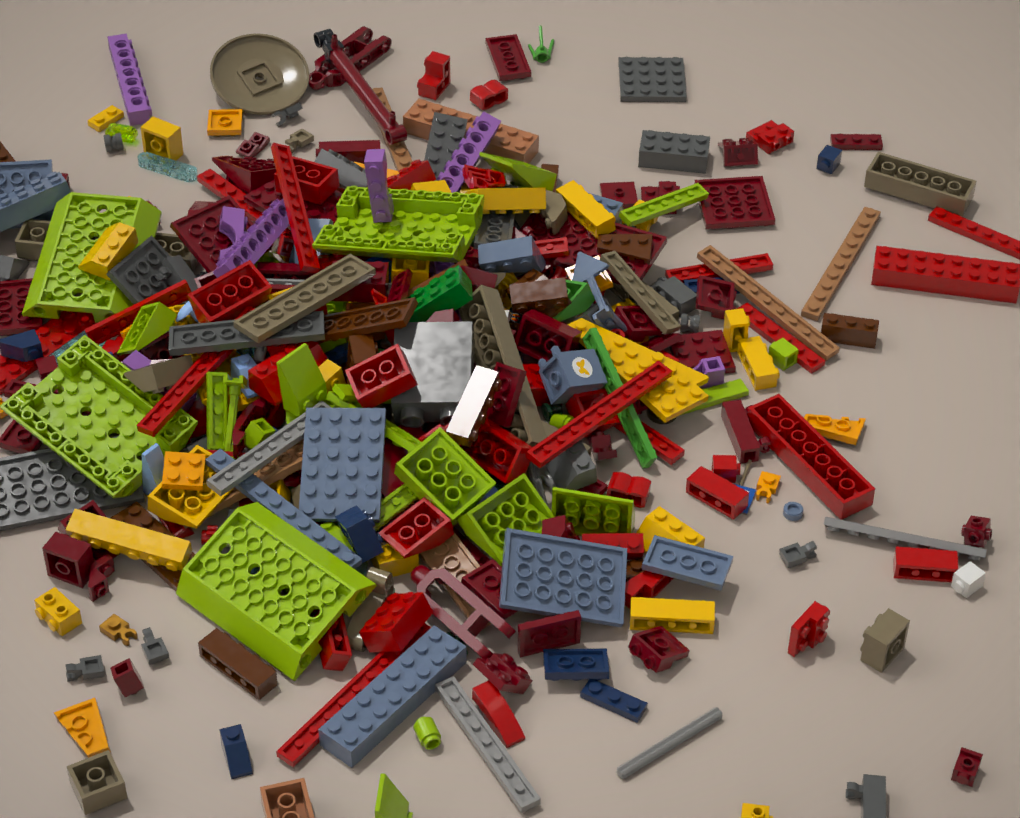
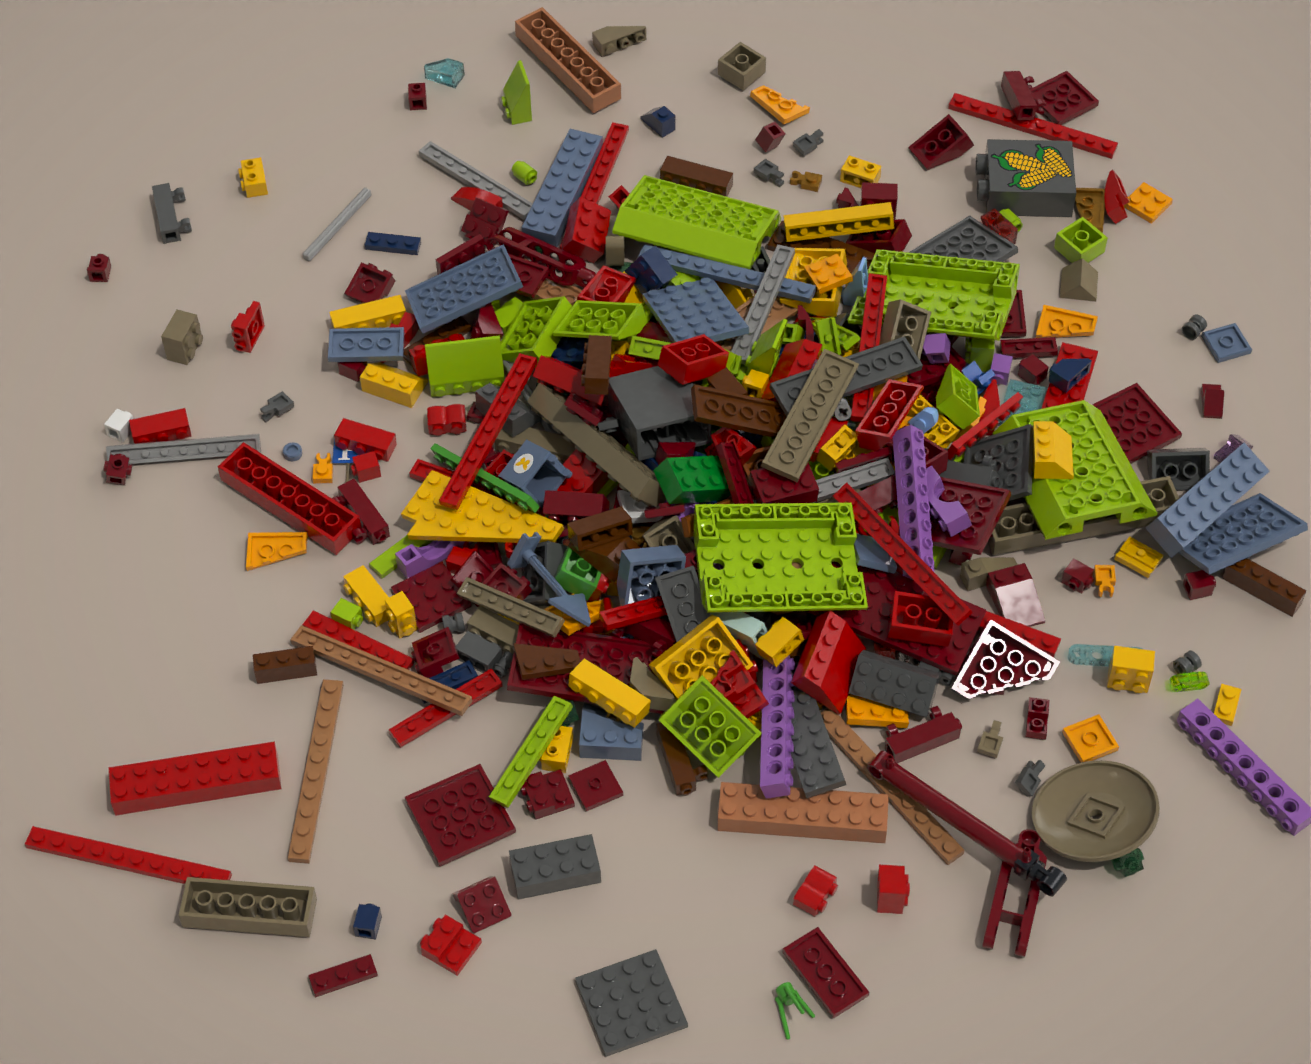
camera: 160 degrees right, 10 degrees up
(376, 175) = (816, 544): medium lavender arch -> none
(575, 664) = (422, 251): dark blue plate -> none

